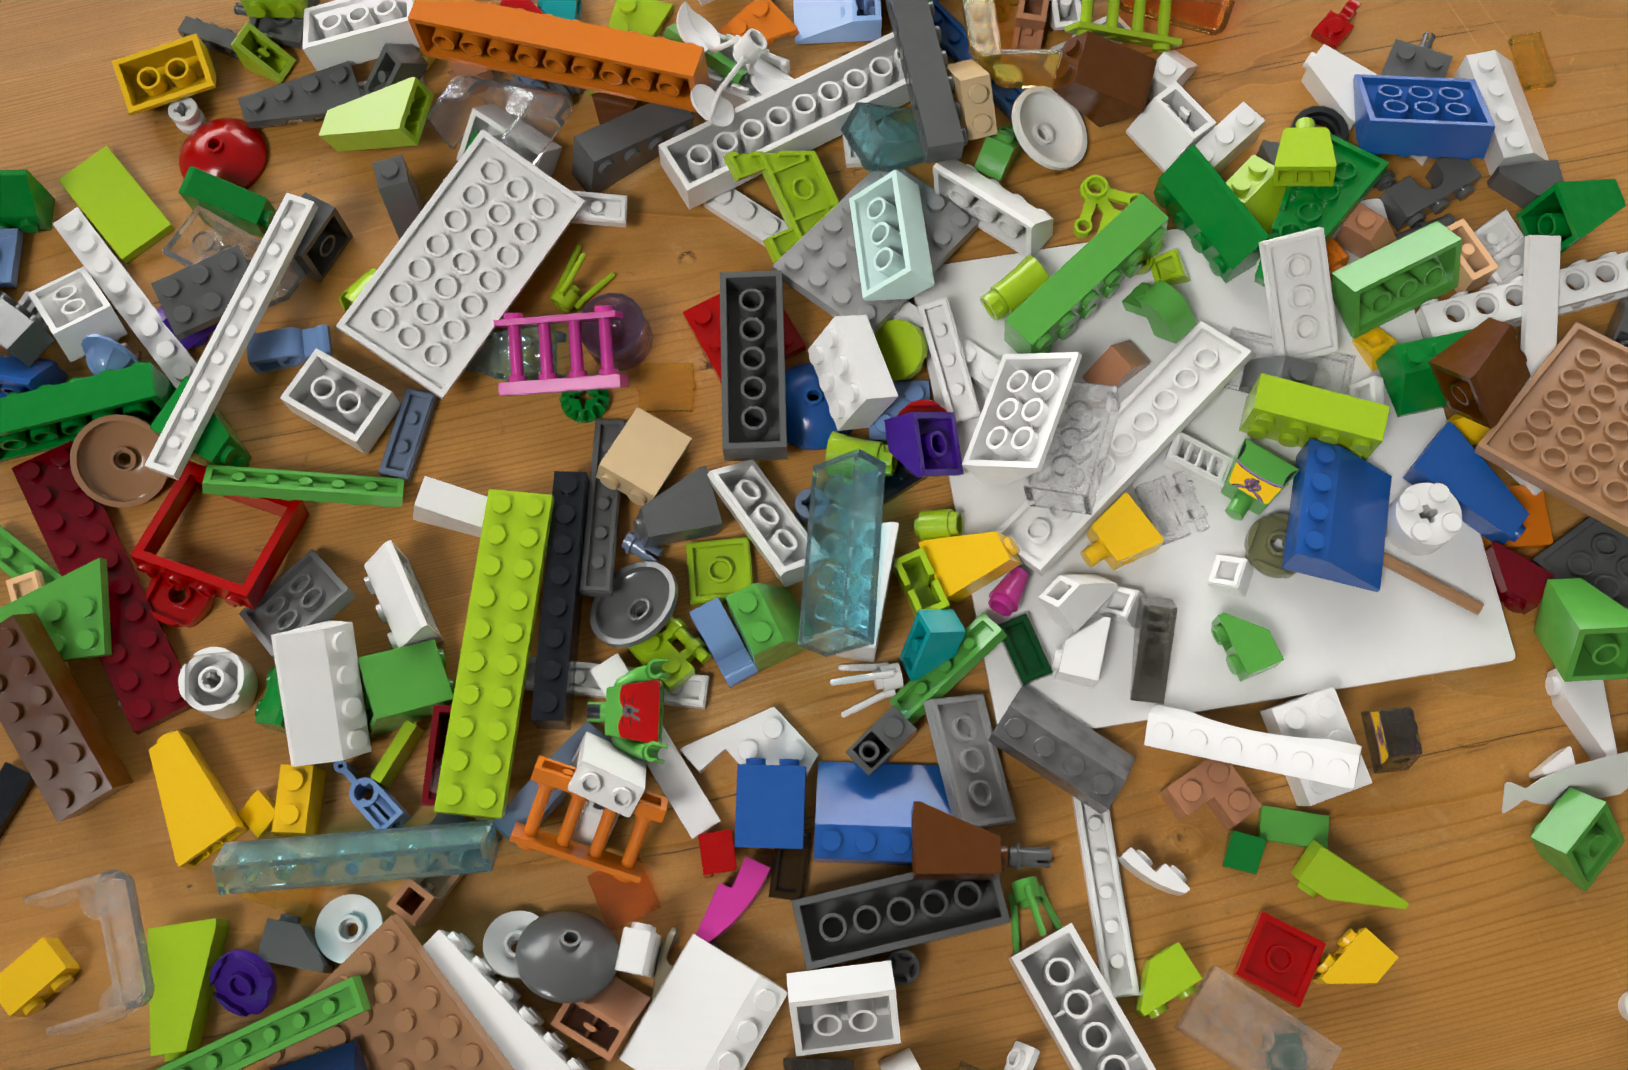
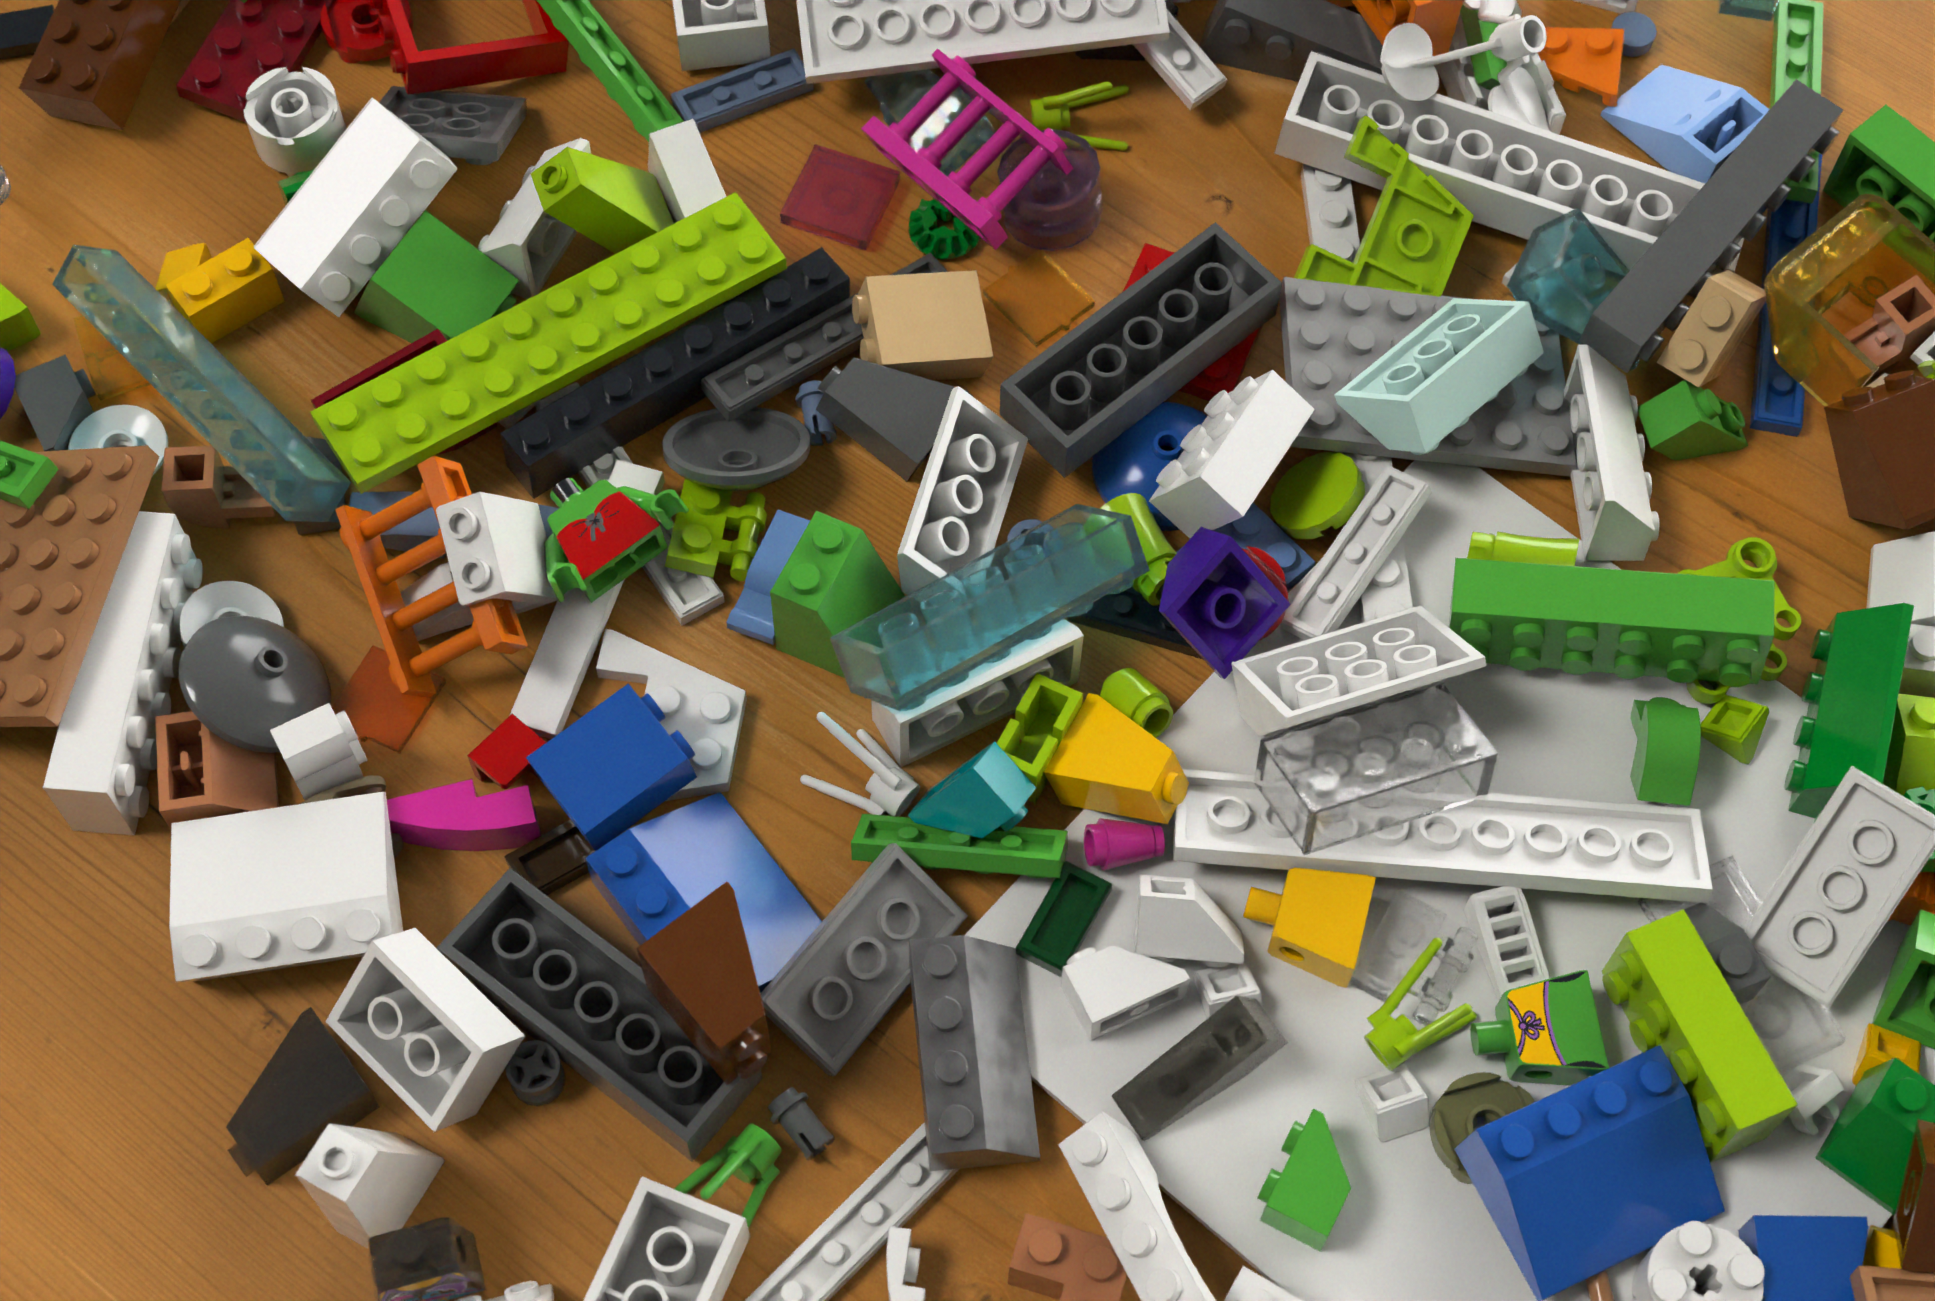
camera: 45 degrees right, 10 degrees down
(193, 801) = (147, 193): yellow slope -> none
(381, 801) = (284, 359): medium blue piece -> none
(397, 754) = (354, 346): lime tile -> none
(438, 559) = (601, 198): none -> lime slope
(520, 436) = (840, 197): none -> clear pink tile
(718, 569) = (868, 500): lime tile -> none
(882, 741) = (801, 837): dark grey slope -> none
(1049, 128) = (1794, 448): white dish -> none
(1117, 365) = (1542, 756): nougat slope -> none
(1209, 548) = (1397, 1038): none -> lime plant

